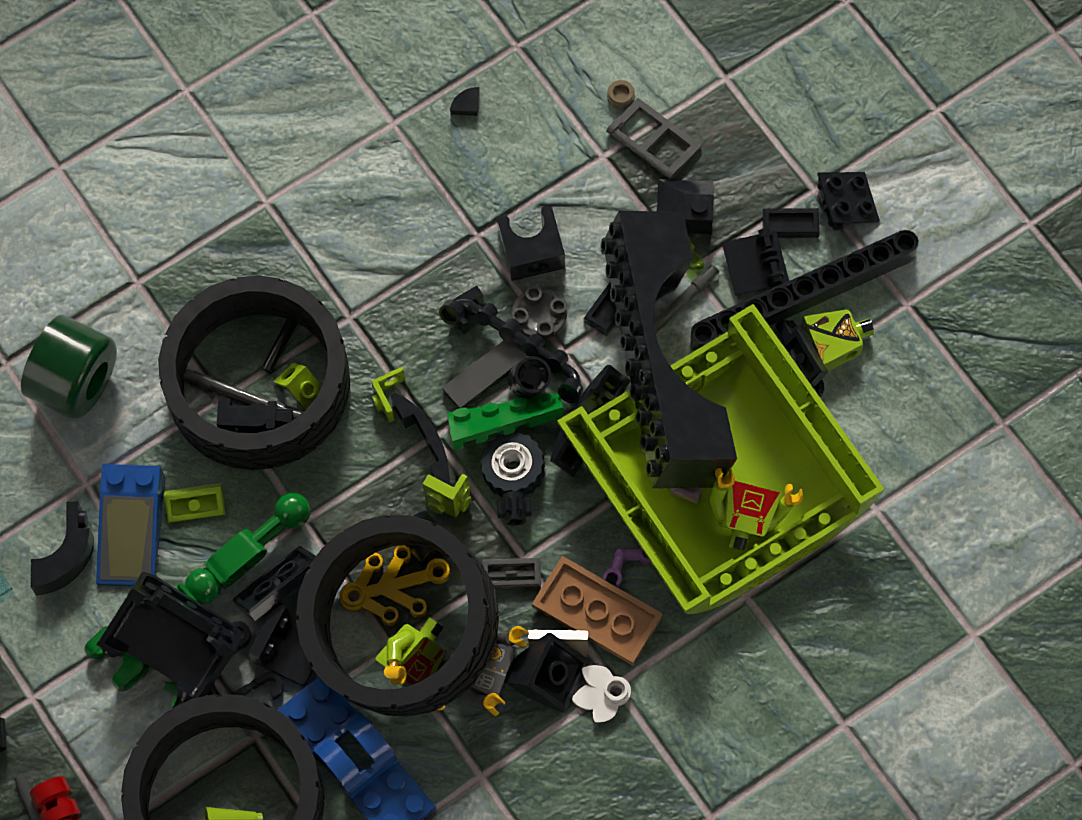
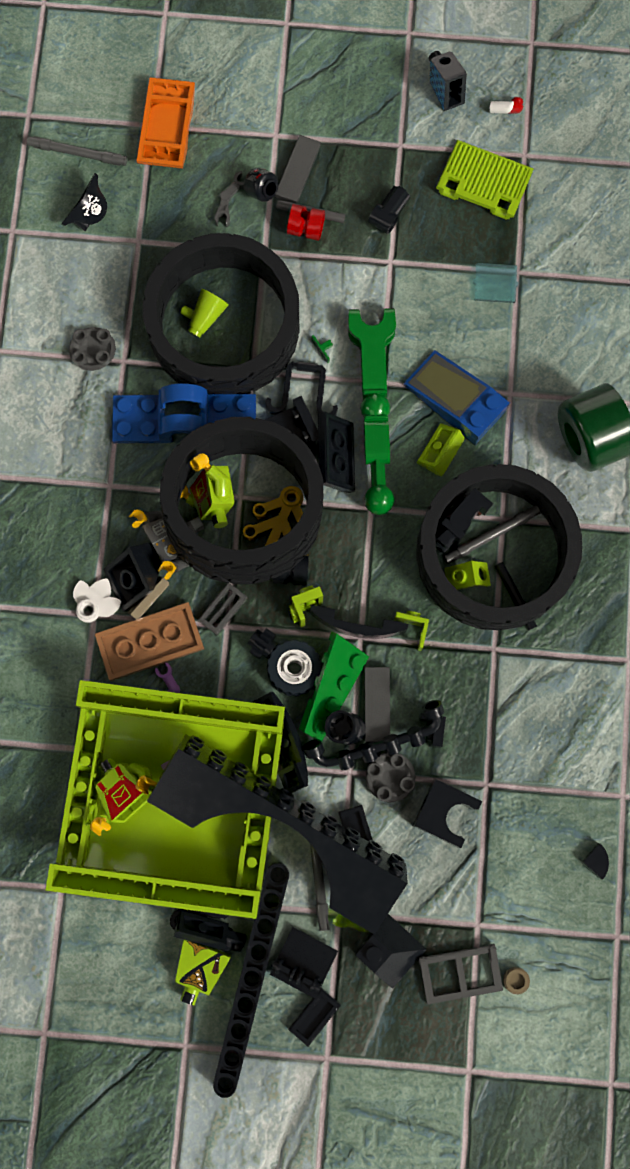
camera: 125 degrees right, 10 degrees up
(69, 559) = (464, 346): black arch -> none
(171, 636) = (351, 361): black windscreen -> none
(846, 198) = (297, 1075): black hinge -> none

